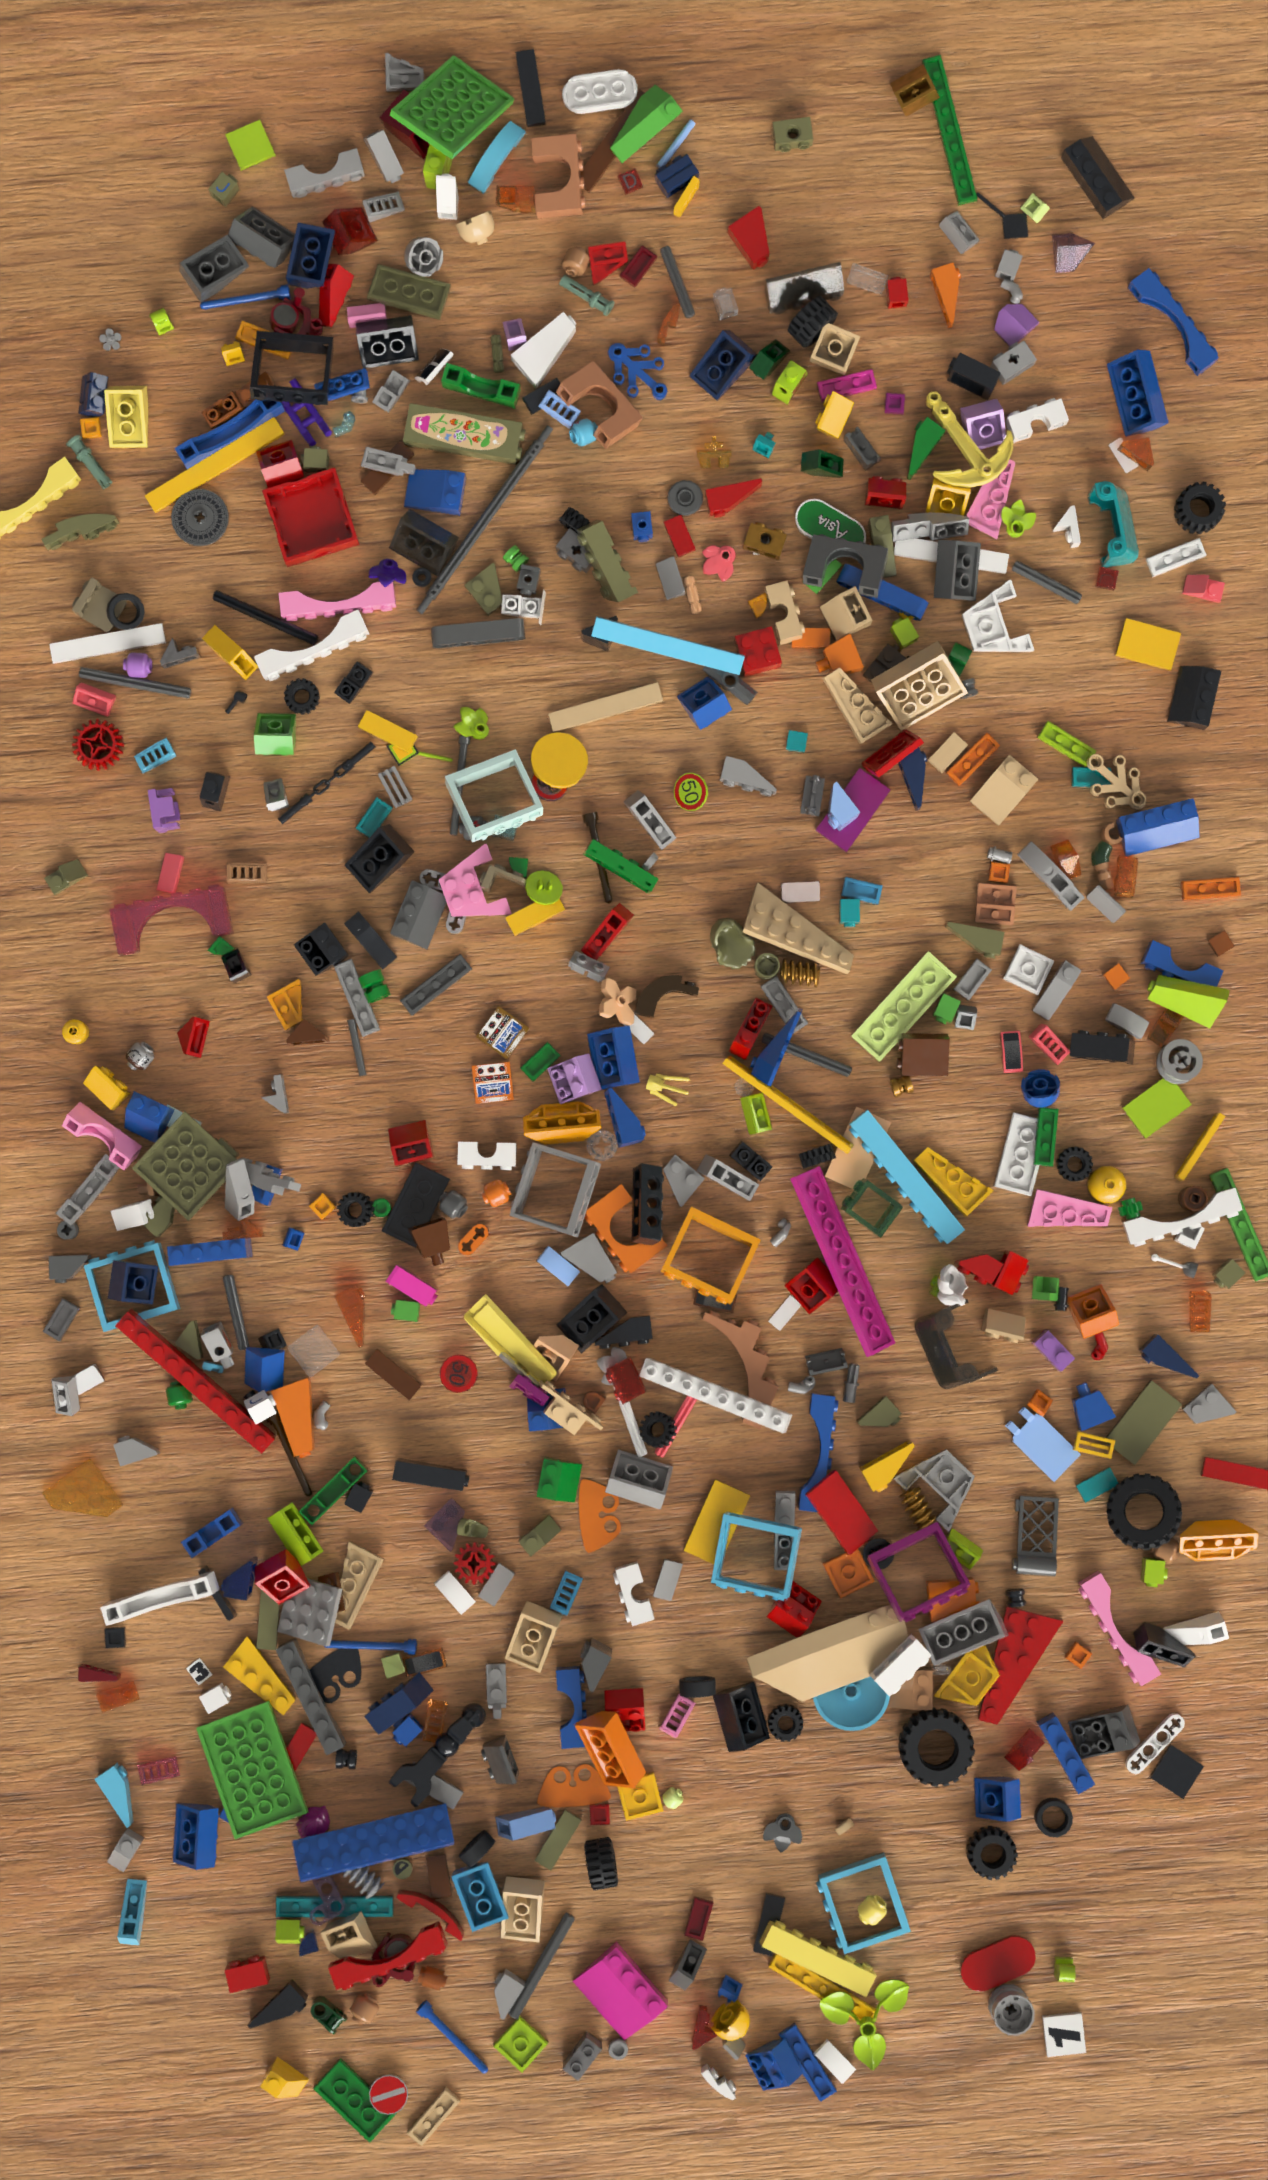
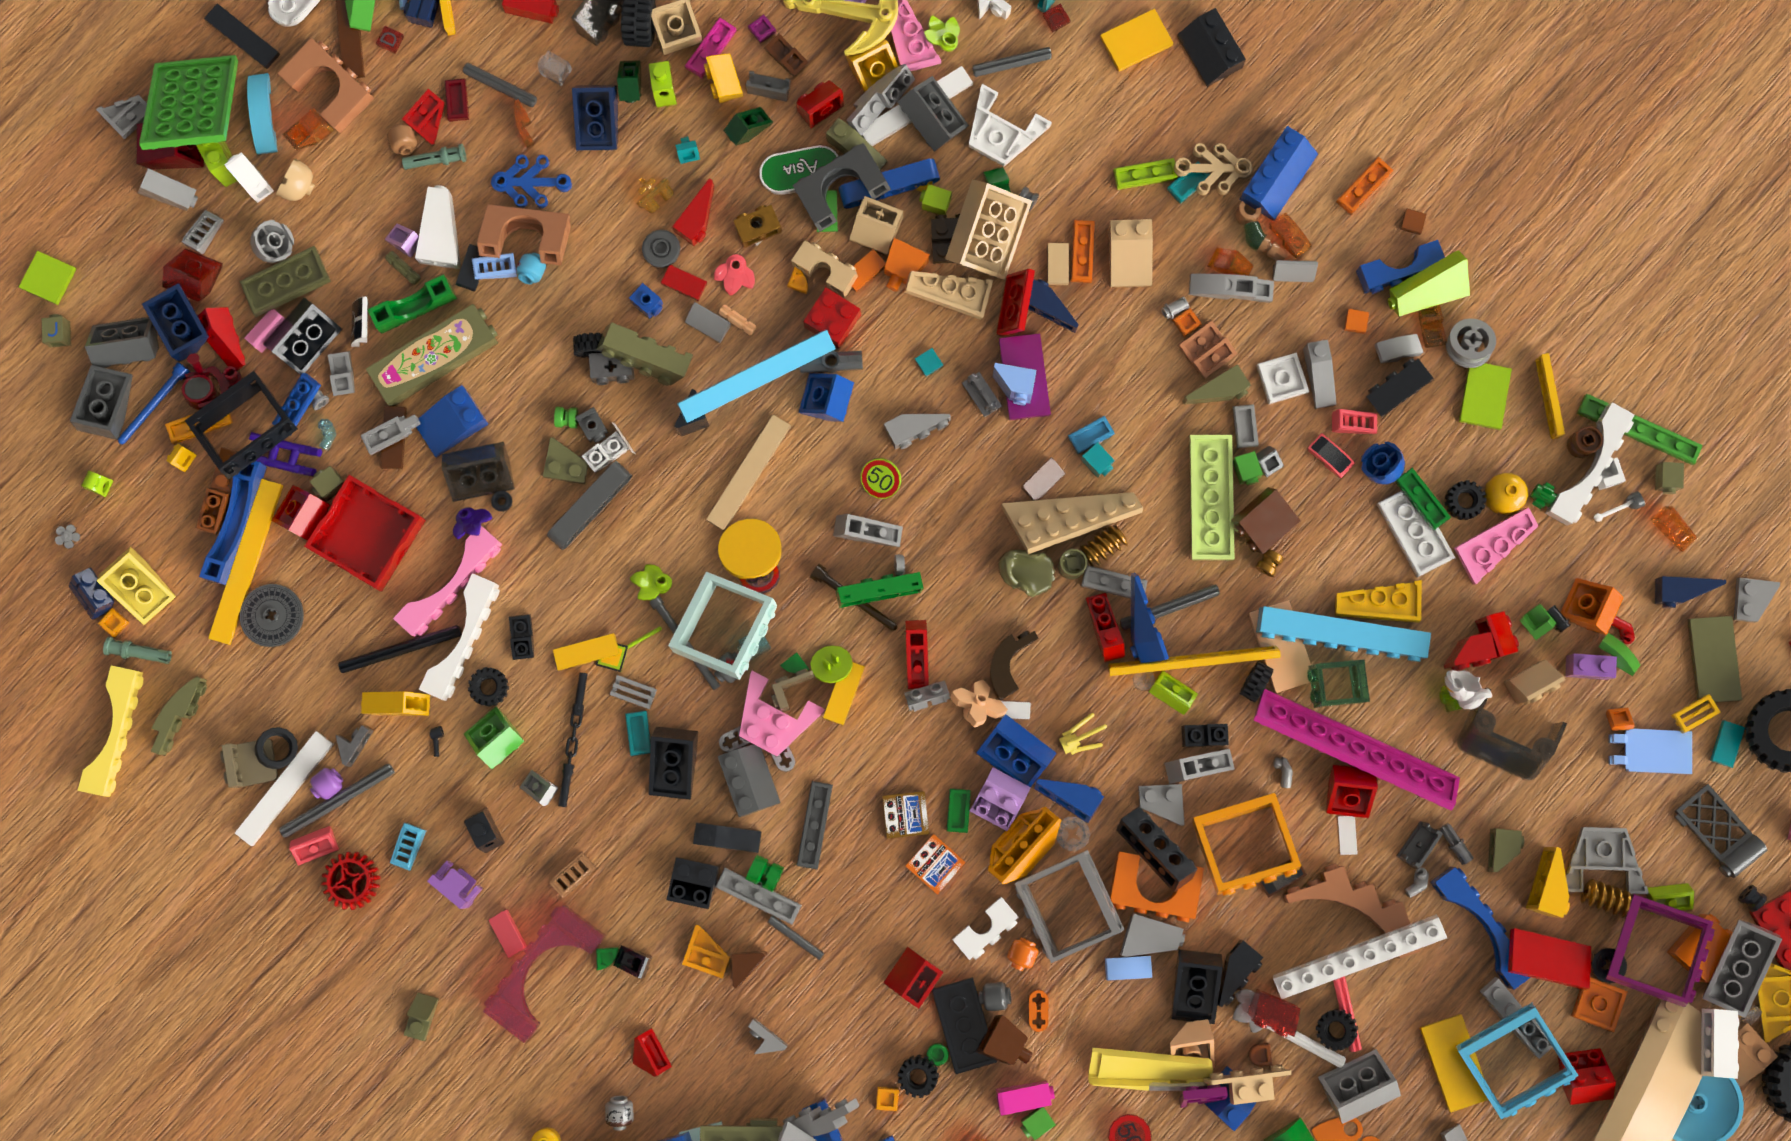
camera: 40 degrees left, 5 degrees down
(346, 169) = (119, 268): light grey arch -> none
(484, 520) = (512, 409): dark grey axle -> none
(894, 437) = (786, 55): none -> reddish brown slope
(925, 439) = (813, 38): green slope -> none
(1081, 1366) = (1625, 658): none -> bright green slope
(1090, 1408) = (1664, 686): blue torso -> none

